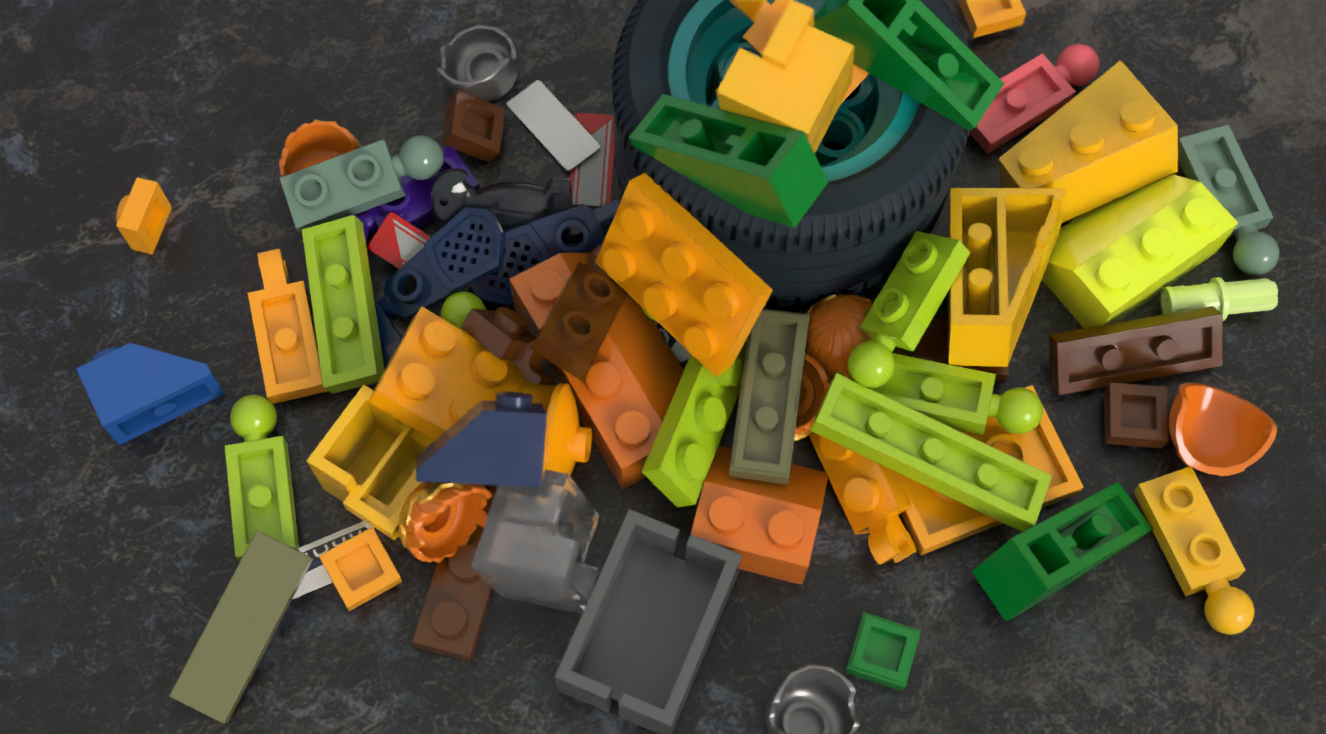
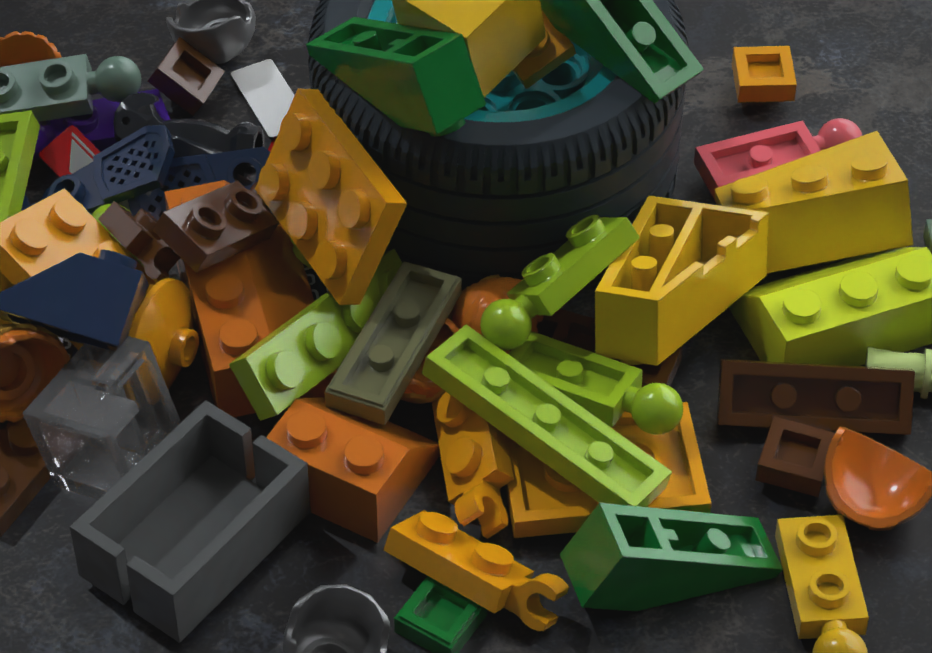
camera: 15 degrees right, 20 degrees down
(902, 602) = (474, 568): none -> light orange plate

